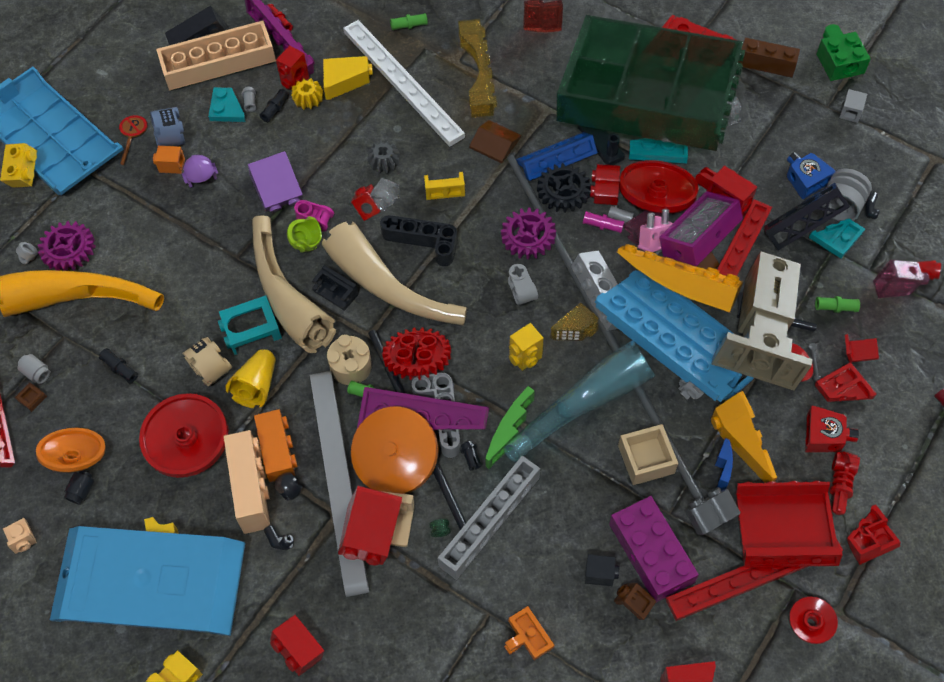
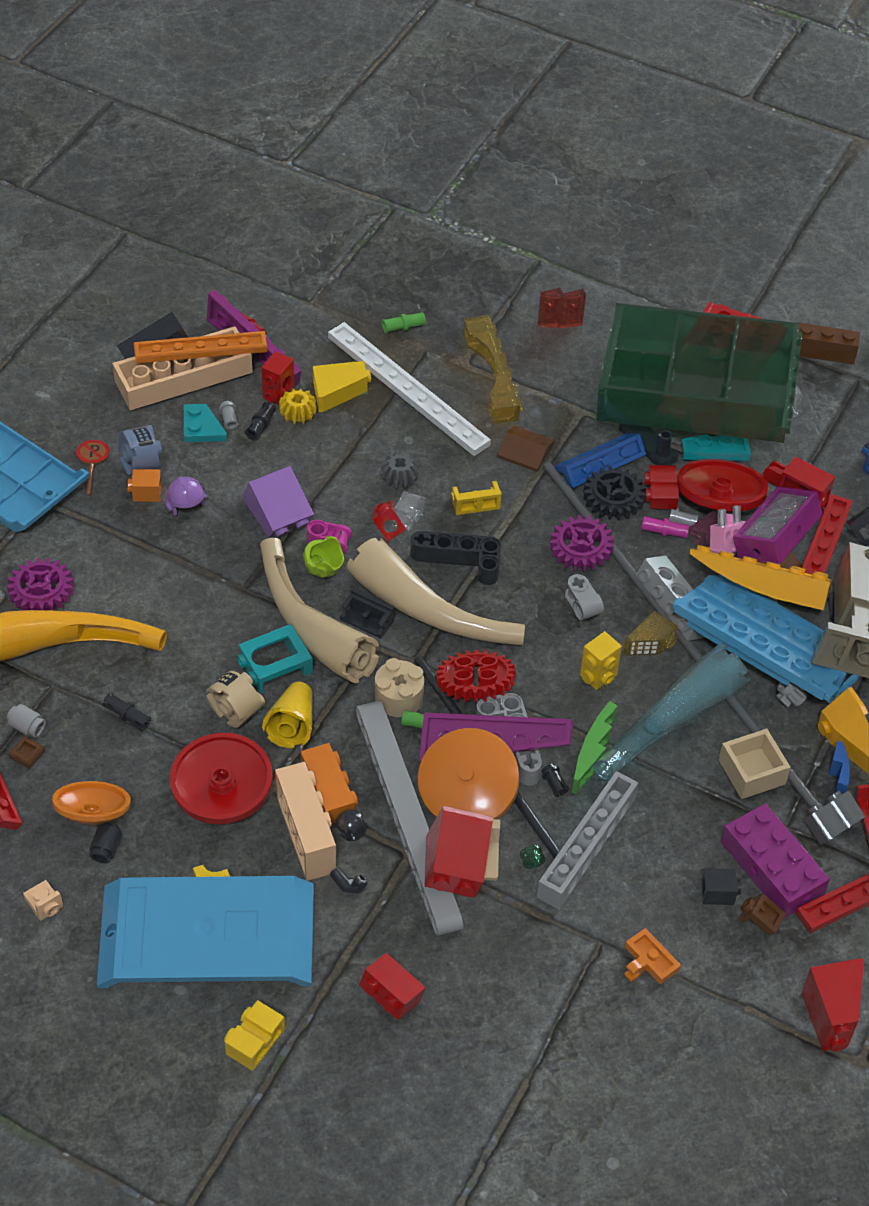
camera: 10 degrees left, 10 degrees down
(230, 38) = (200, 347): none -> orange tile

